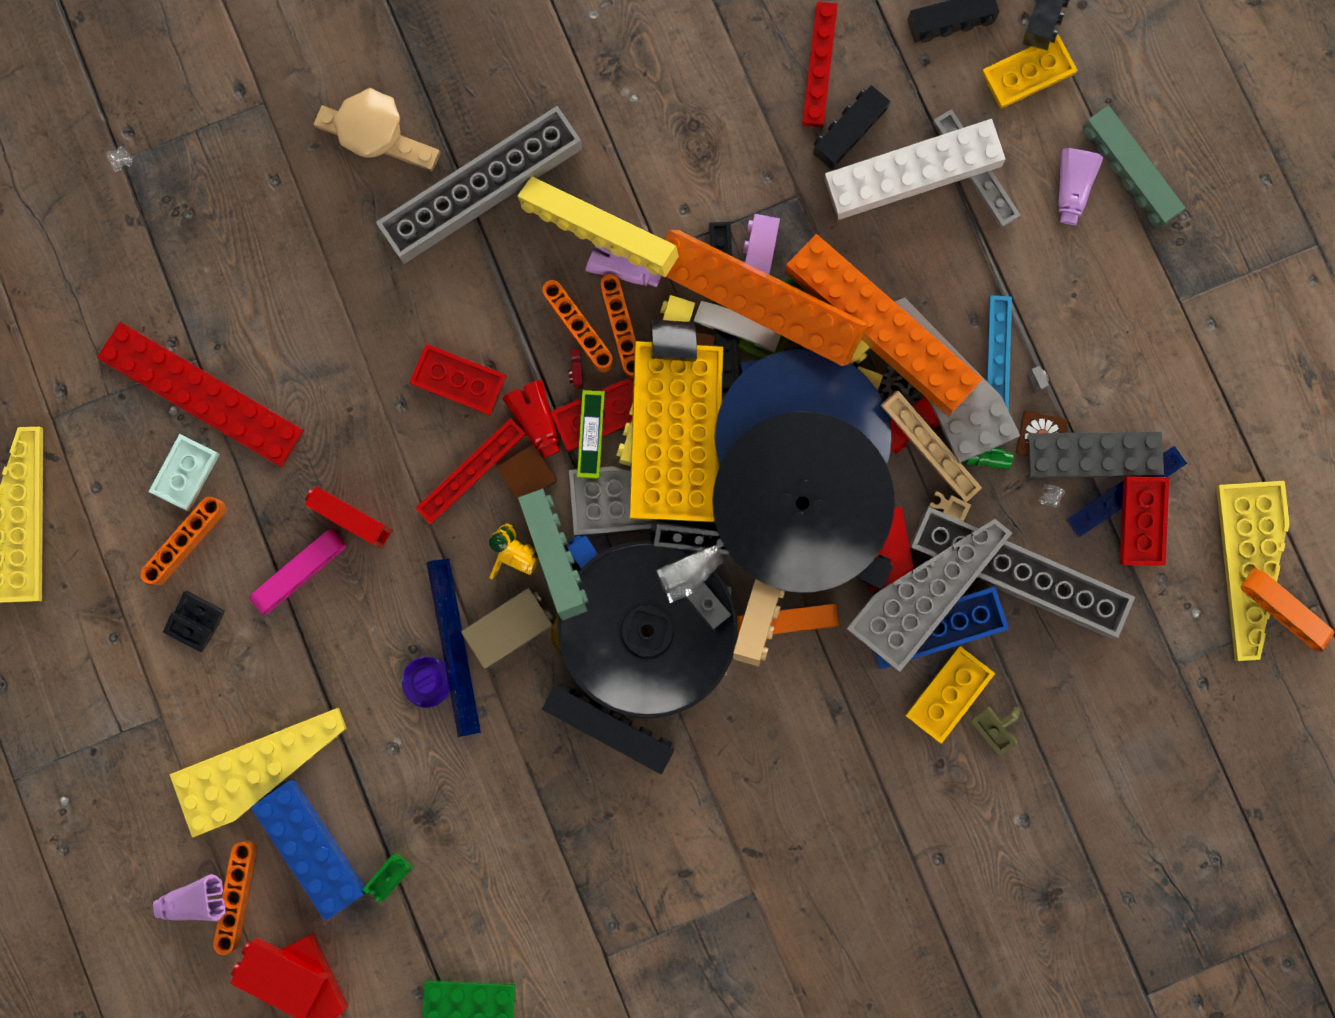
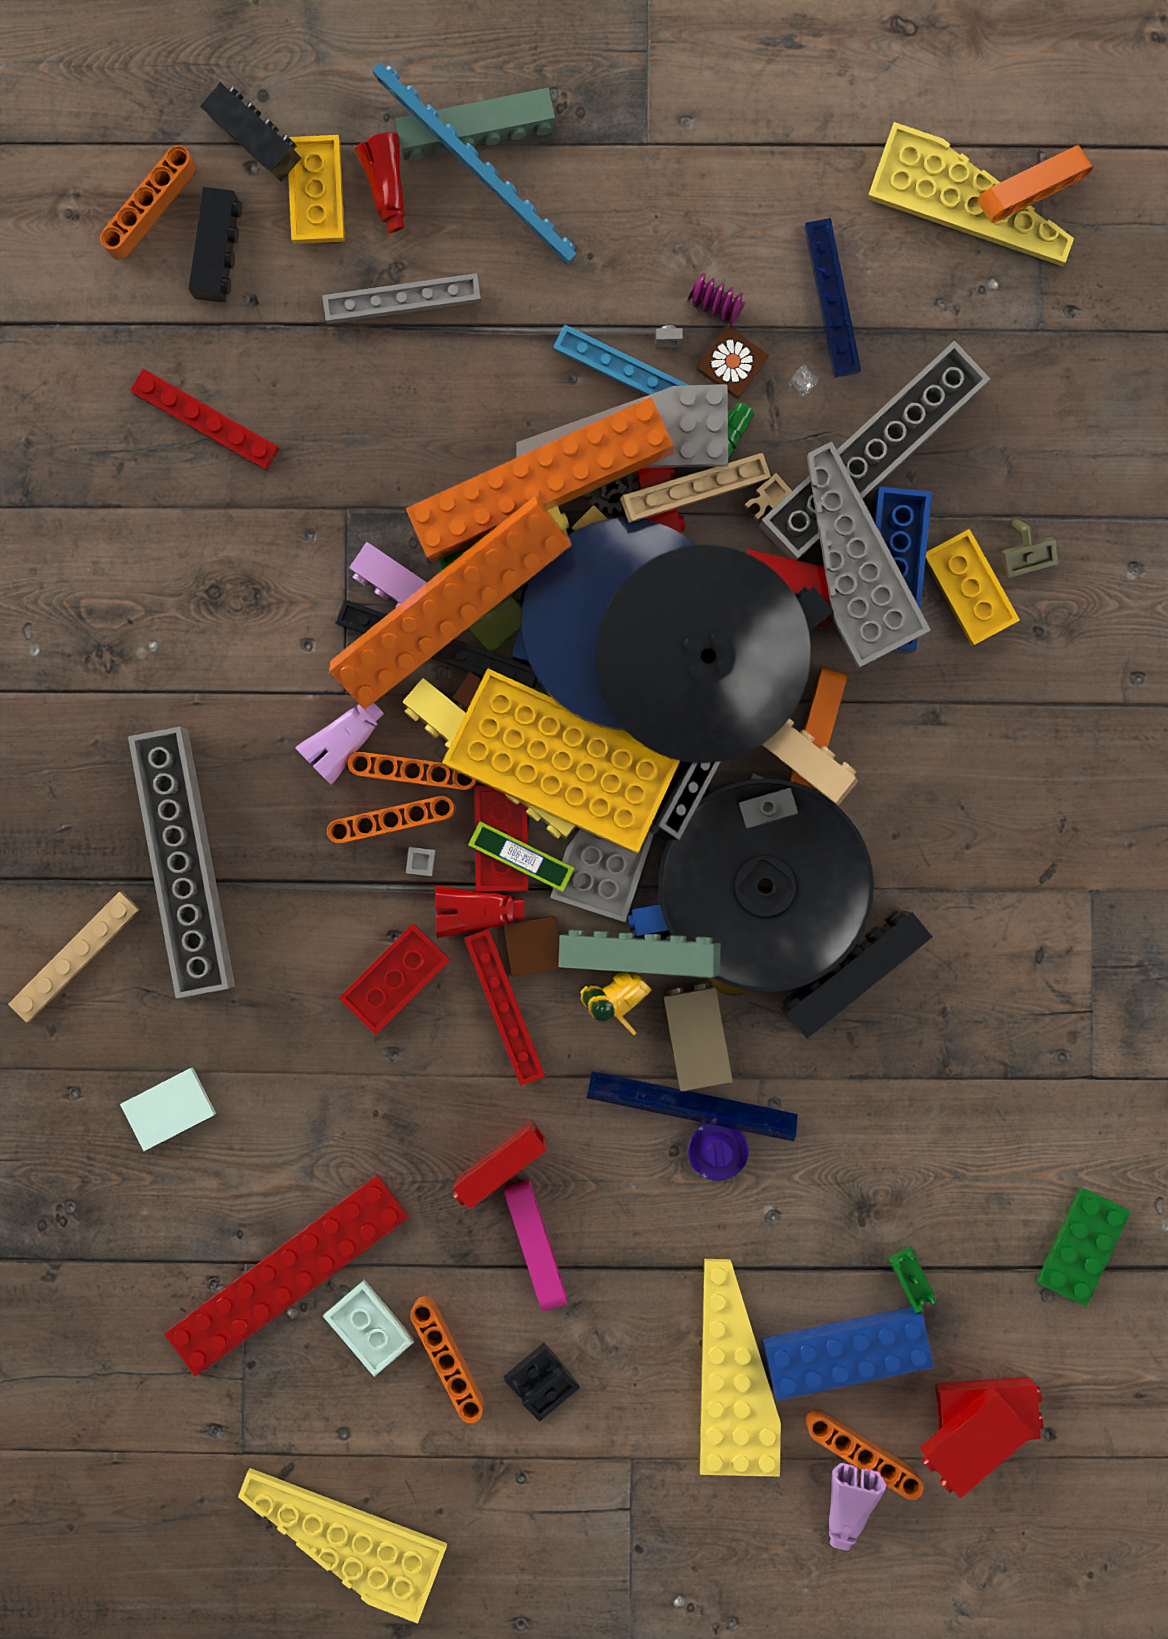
camera: 70 degrees left, 5 degrees up
(290, 254) = (168, 1109): none -> light aqua tile
(368, 123) = (54, 960): tan piece -> none
(555, 361) = (420, 861): none -> light grey plate
(575, 374) = (445, 845): dark red plate -> none
(598, 226) = (290, 749): light yellow brick -> none
(673, 340) = (457, 720): black slope -> none
(687, 574) = (727, 818): clear slope -> none
(726, 320) = (456, 653): white slope -> none
(851, 127) = (294, 416): black brick -> none
(914, 169) = (375, 366): white brick -> none
(1071, 109) = (382, 167): none -> red piece
(1077, 177) = (463, 193): lavender piece -> none
(1083, 403) = (716, 299): none -> magenta piece
(1095, 454) = (779, 313): dark grey plate -> none
(1105, 169) = (468, 156): none -> dark azure plate
(1144, 521) = (874, 292): red plate -> none

